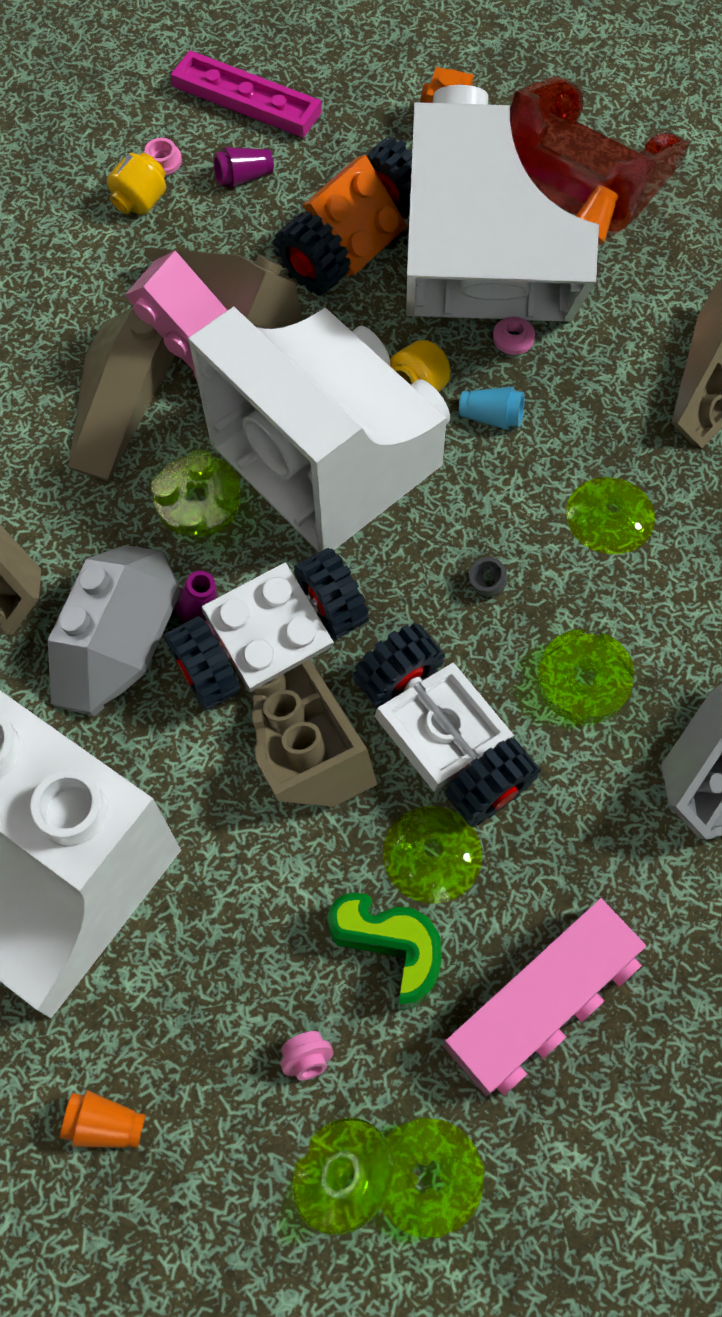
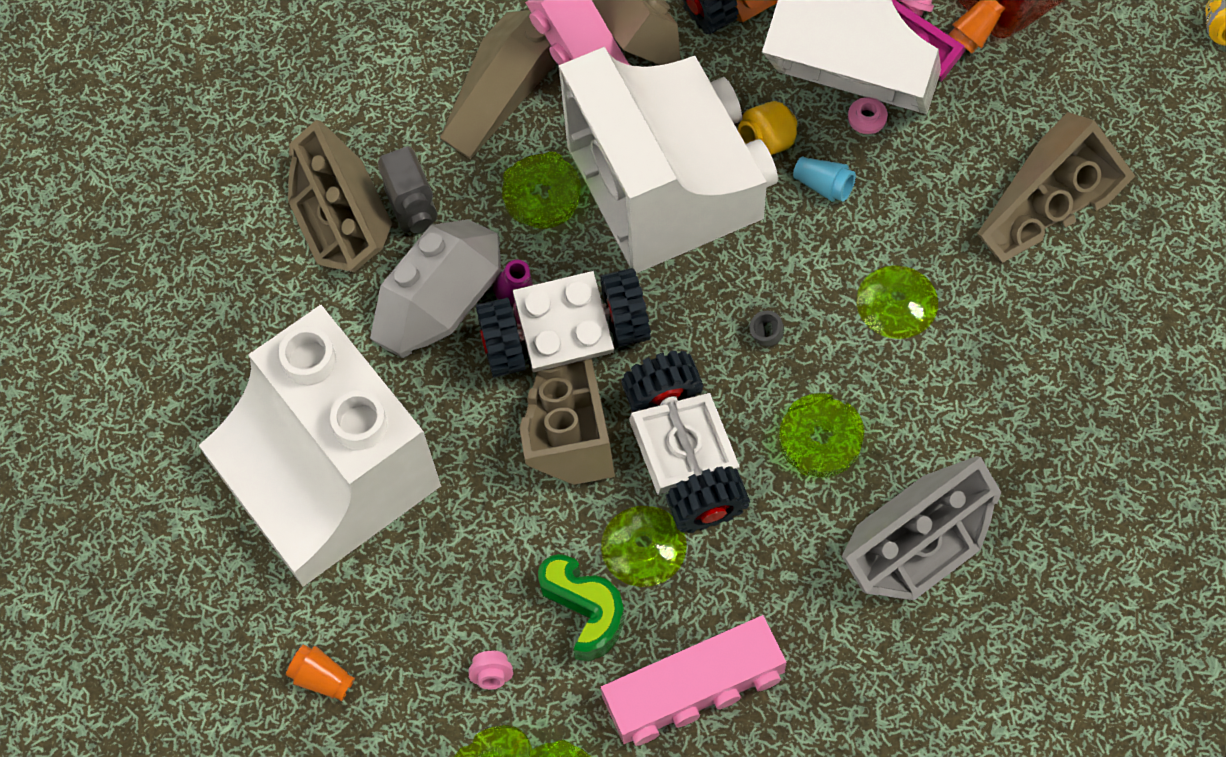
camera: 20 degrees right, 0 degrees up
(48, 527) = (407, 190): none -> flat silver brick

